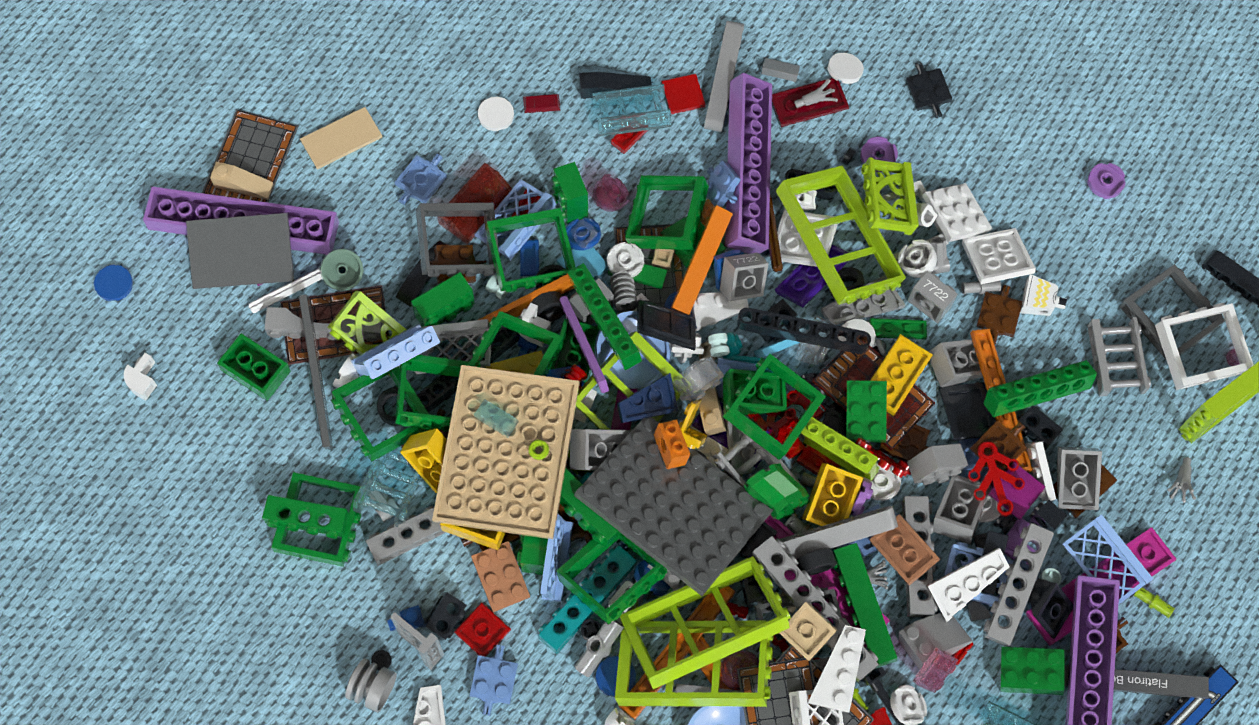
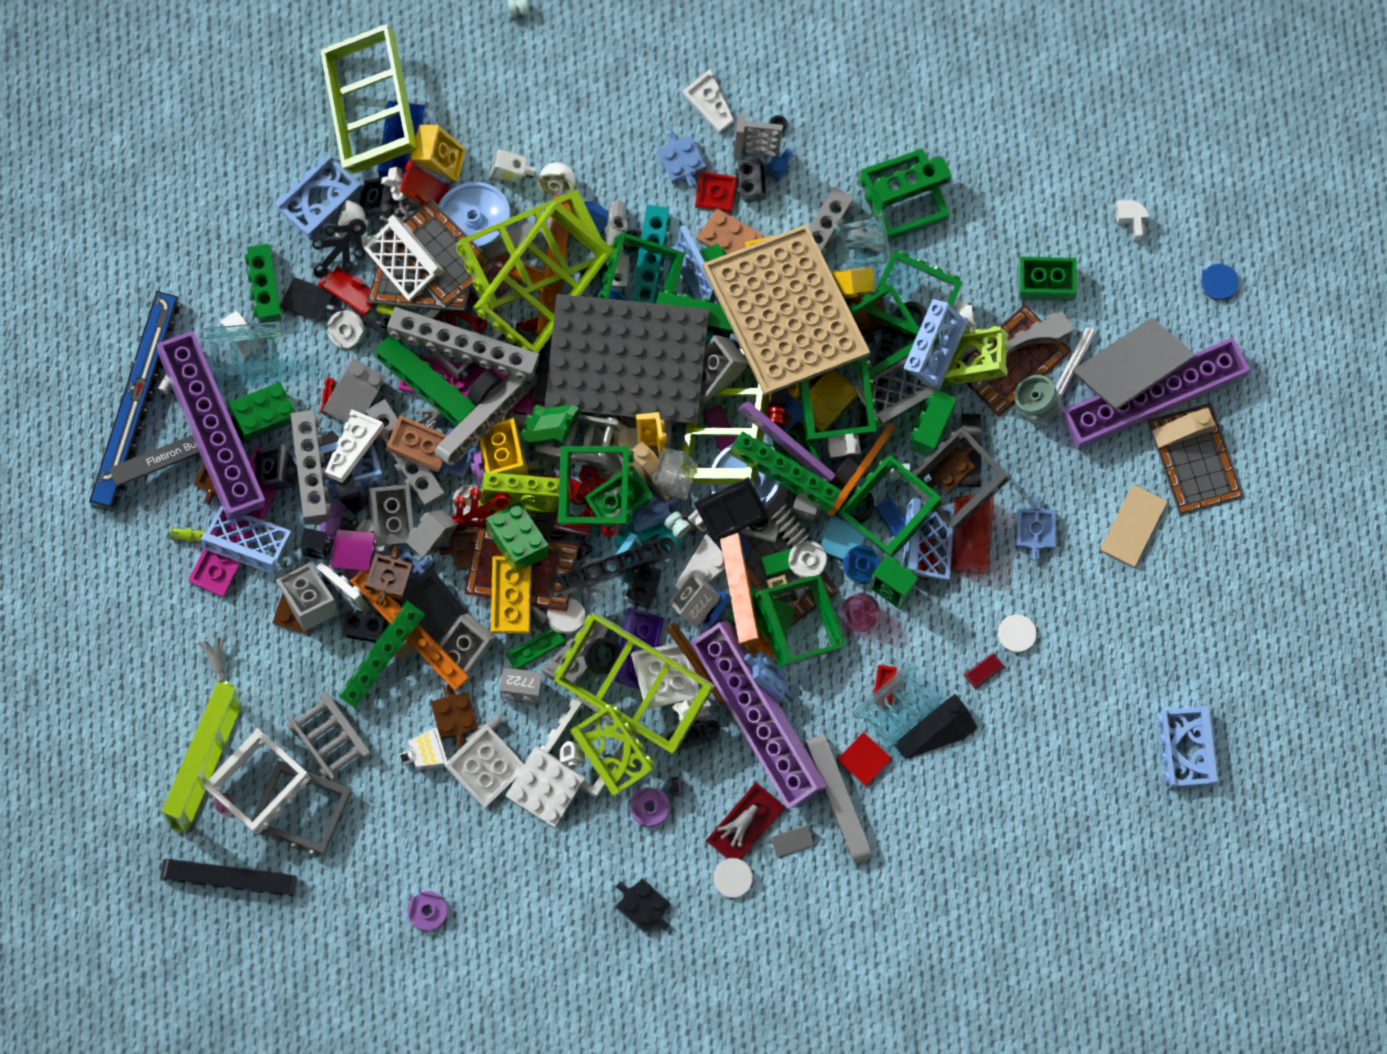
camera: 145 degrees right, 5 degrees up
(316, 373) = (993, 301): dark grey tile -> none
(368, 684) = (770, 95): light grey wheel -> none
(496, 418) = (810, 324): clear light blue plate -> none
(535, 444) = (759, 314): lime plate -> none
(650, 401) = (702, 433): dark blue wing -> none
(671, 444) = (658, 399): orange brick -> none
(808, 631) = (456, 316): tan plate -> none
(840, 673) = (412, 298): white wing -> none
(917, 258) = (553, 708): white cylinder -> none
(935, 670) = (339, 362): clear pink plate -> none
(942, 264) = (538, 731): light grey piece -> none
(995, 475) = (377, 546): red plant -> none
(1051, 575) = (283, 497): light aqua wheel -> none

